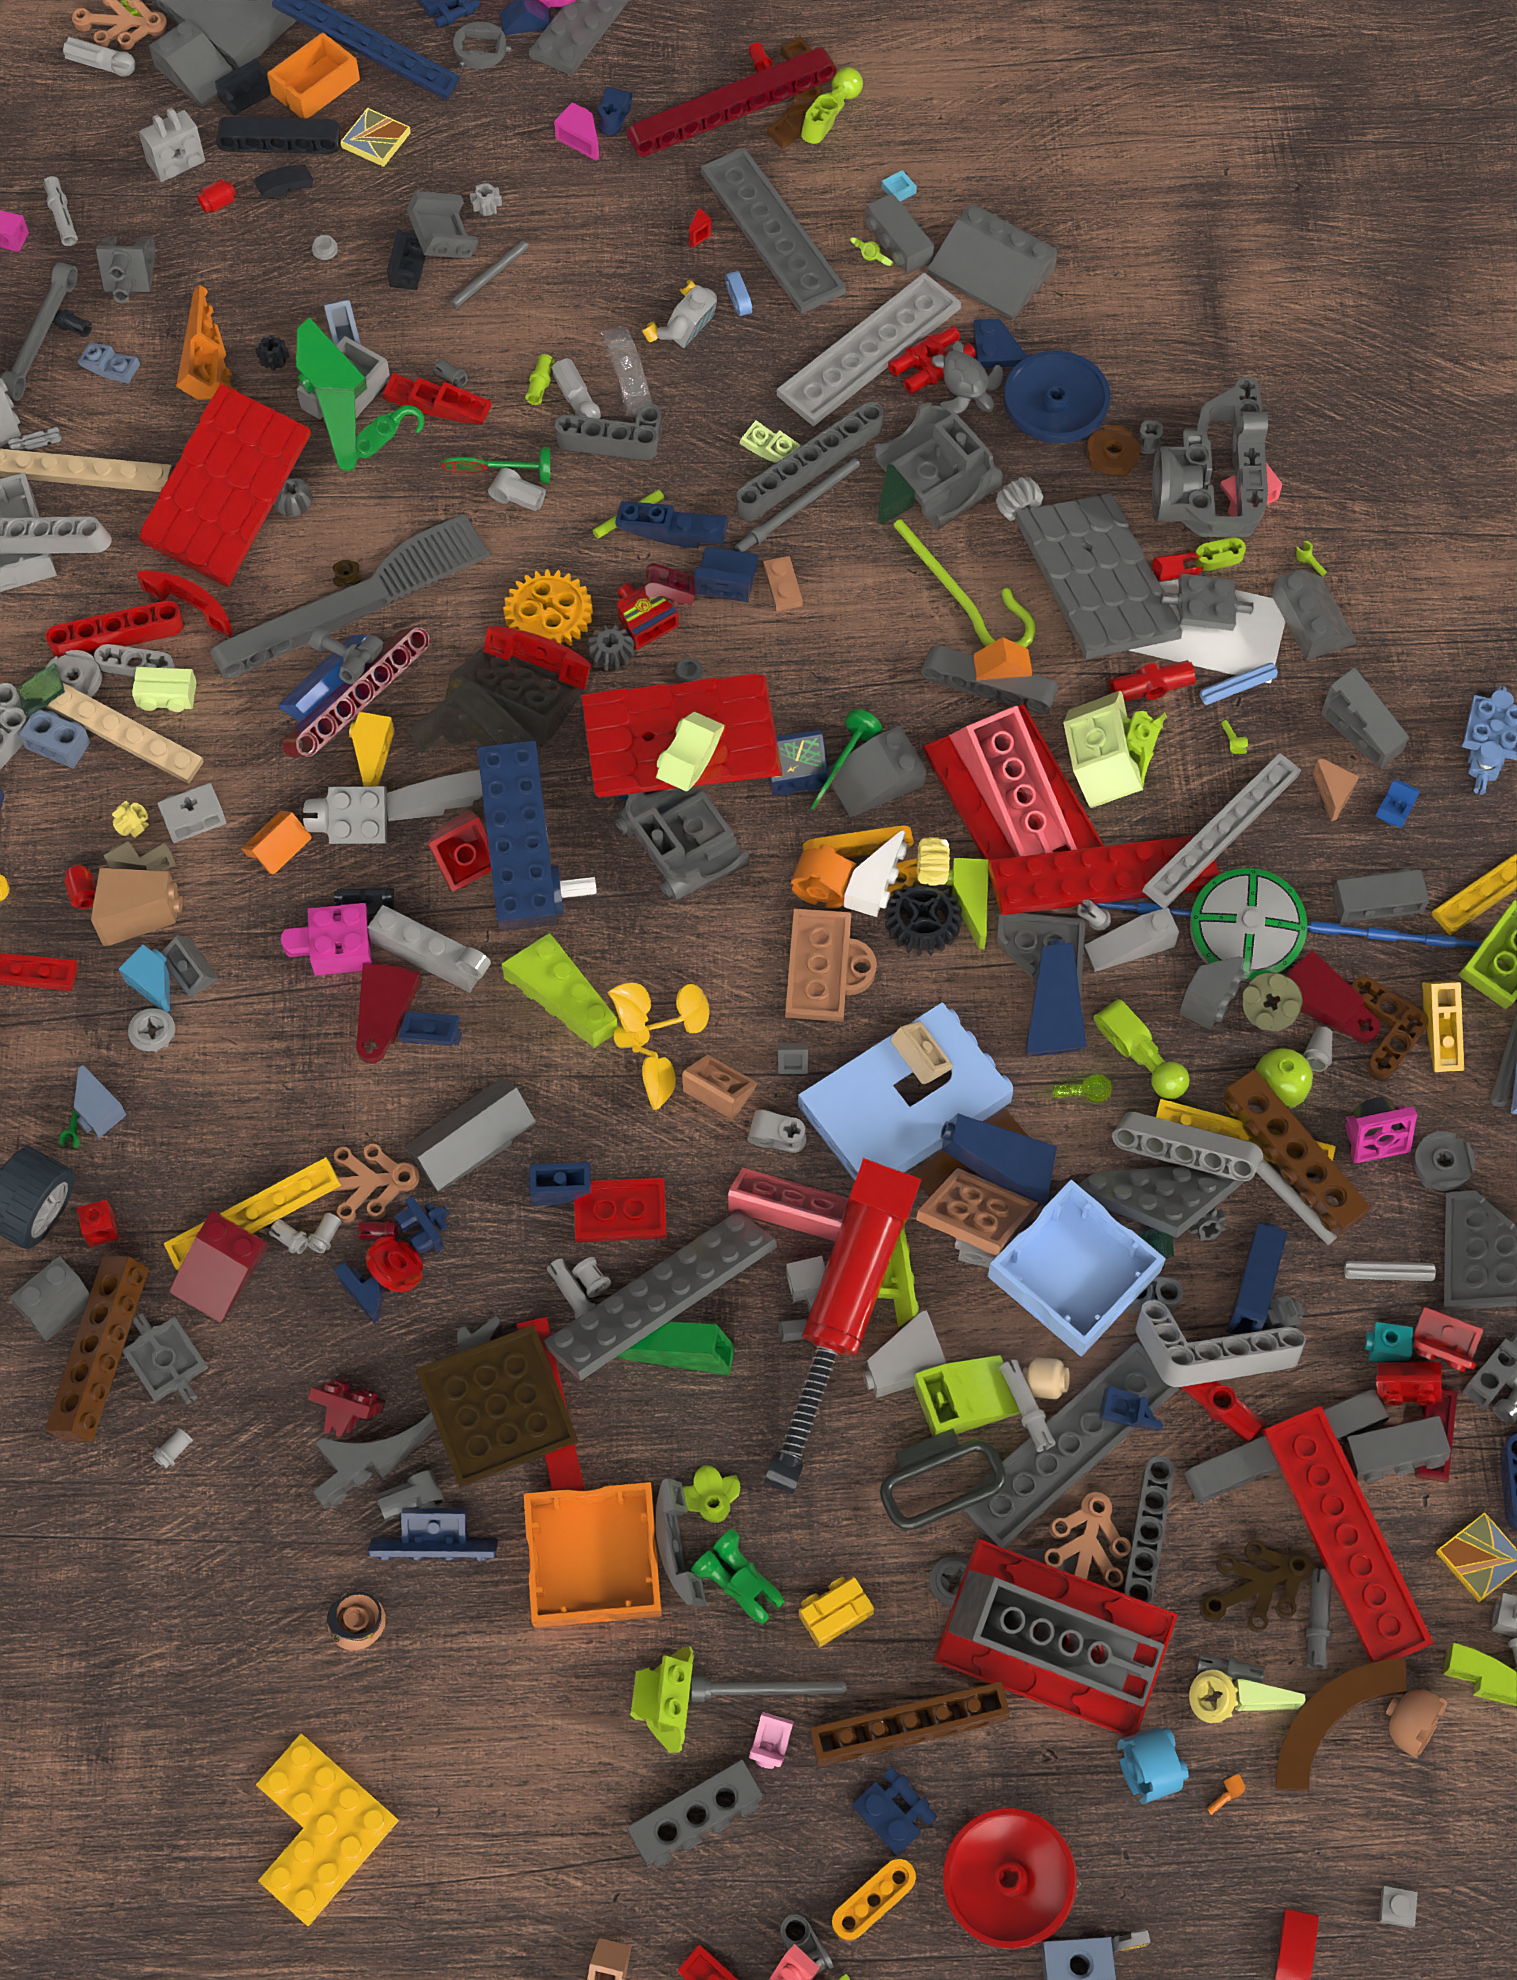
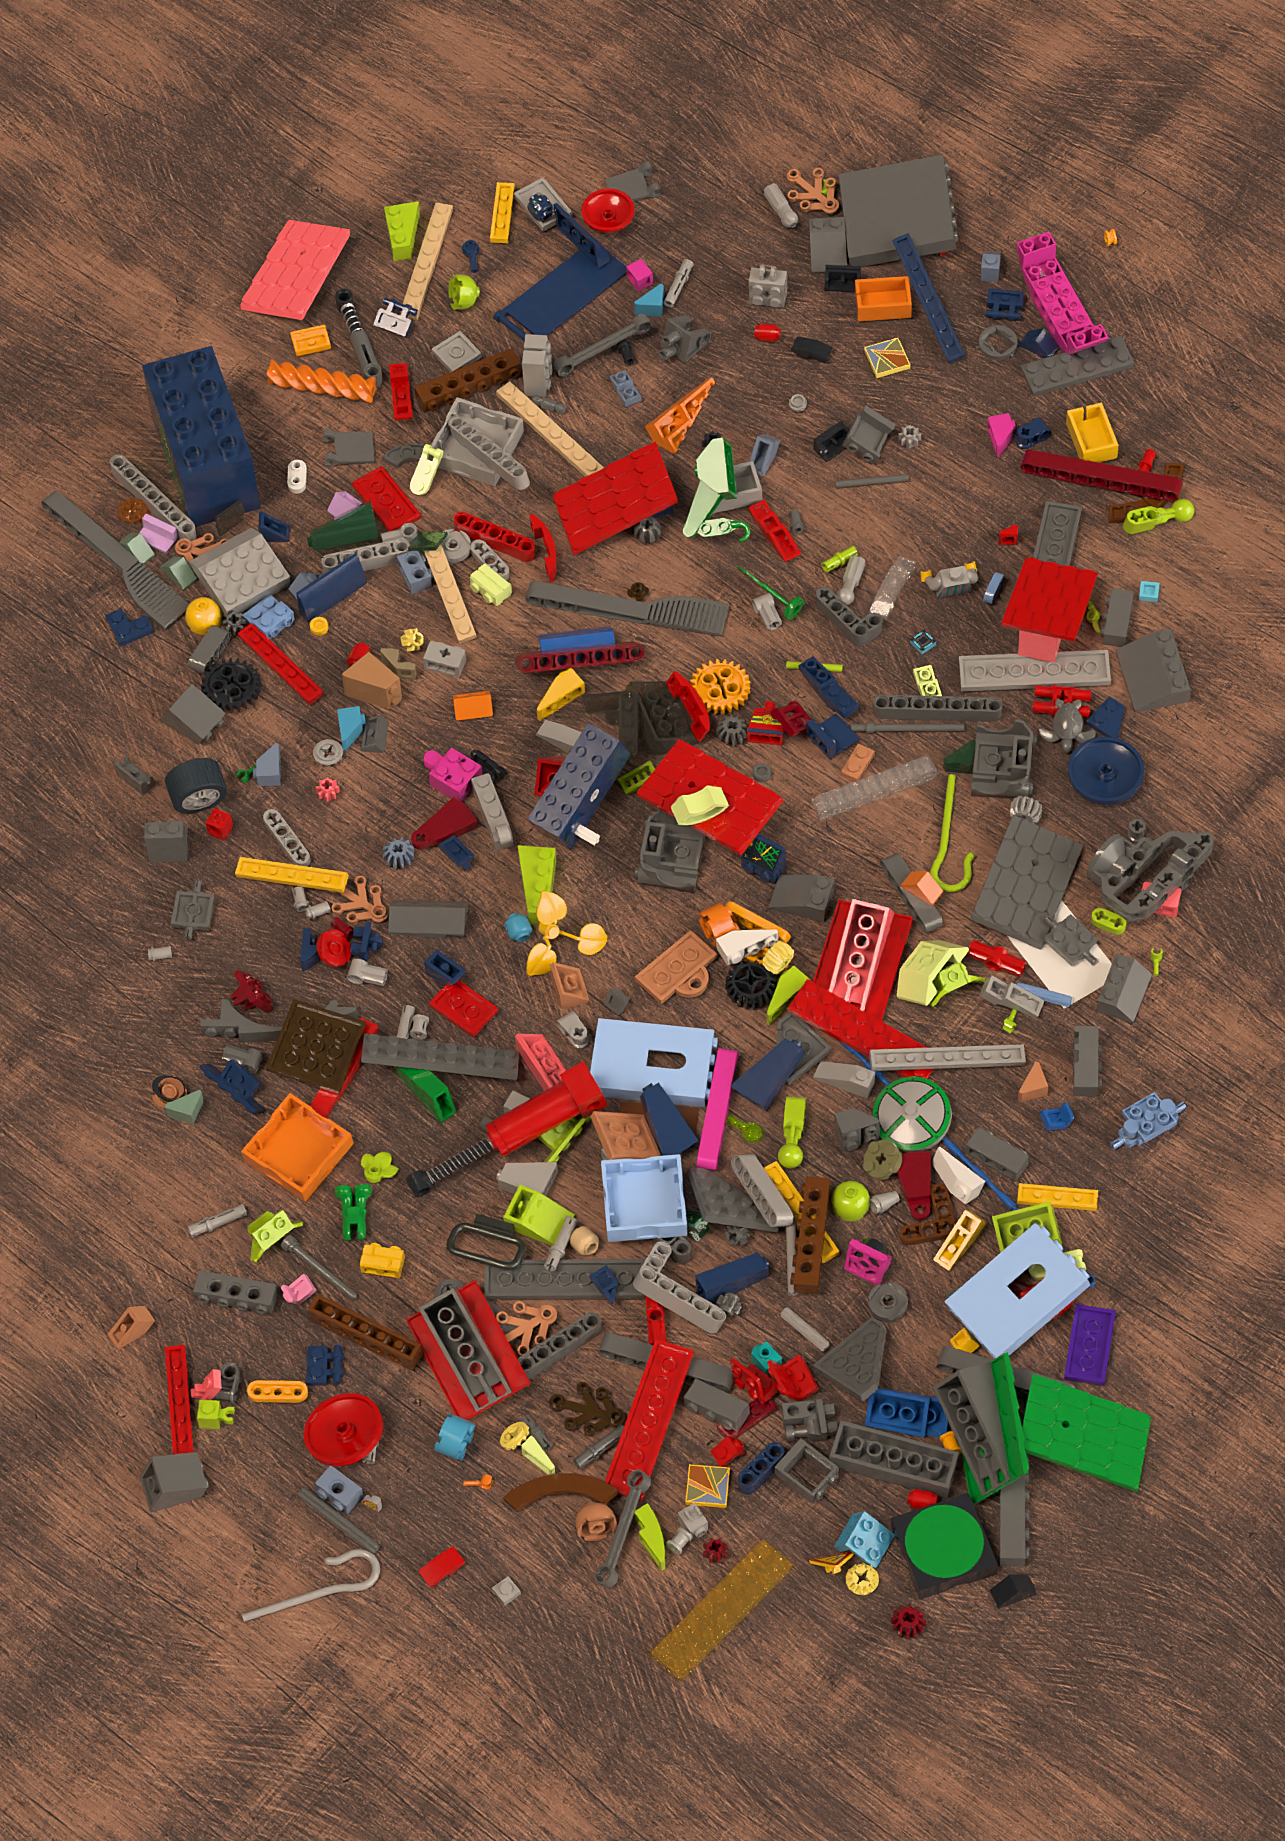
camera: 45 degrees right, 5 degrees down
(50, 250) = (651, 302): none -> dark azure slope
(97, 1349) = (166, 881): reddish brown brick -> none
(196, 1067) = (327, 789): none -> coral gear
(200, 1172) = (289, 837): none -> light grey beam
(218, 1266) = (254, 885): dark red slope -> none
(278, 135) = (834, 320): black beam -> none
(338, 1831) = (81, 1171): yellow plate -> none
(349, 1081) = (398, 853): none -> sand blue gear
(350, 815) = (518, 717): light grey plate -> none
(354, 656) = (591, 635): dark grey bar -> none
(399, 1623) = (186, 1107): none -> sand green slope
(455, 1266) = (362, 972): none -> light grey piece
(564, 760) = (643, 769): none -> lime slope
(573, 1750) = (215, 1221): none -> light grey pin
(591, 1062) = (518, 927): none -> dark azure head
(670, 1505) = (337, 1171): dark grey slope -> none
(680, 65) = (1094, 435): none -> yellow piece
(719, 403) = (923, 642): none -> tile
(830, 596) = (874, 787): none -> clear beam
(831, 266) = (1048, 606): none -> red piece
(861, 726) = (767, 881): green piece -> none
(921, 1052) = (678, 1044): tan slope -> none
(1035, 1094) = (717, 1109): none -> dark pink beam
(1098, 917) = (840, 1053): light grey pin -> none
(1113, 463) = (1110, 814): reddish brown plate -> none
(1171, 566) = (1074, 908): red piece -> none
(1211, 710) = (1011, 996): none -> light grey slope
(1368, 955) = (957, 1177): none -> white slope
(1457, 1702) = (622, 1528): none -> dark grey piece
(1462, 1494) = (728, 1450): none -> red bracket

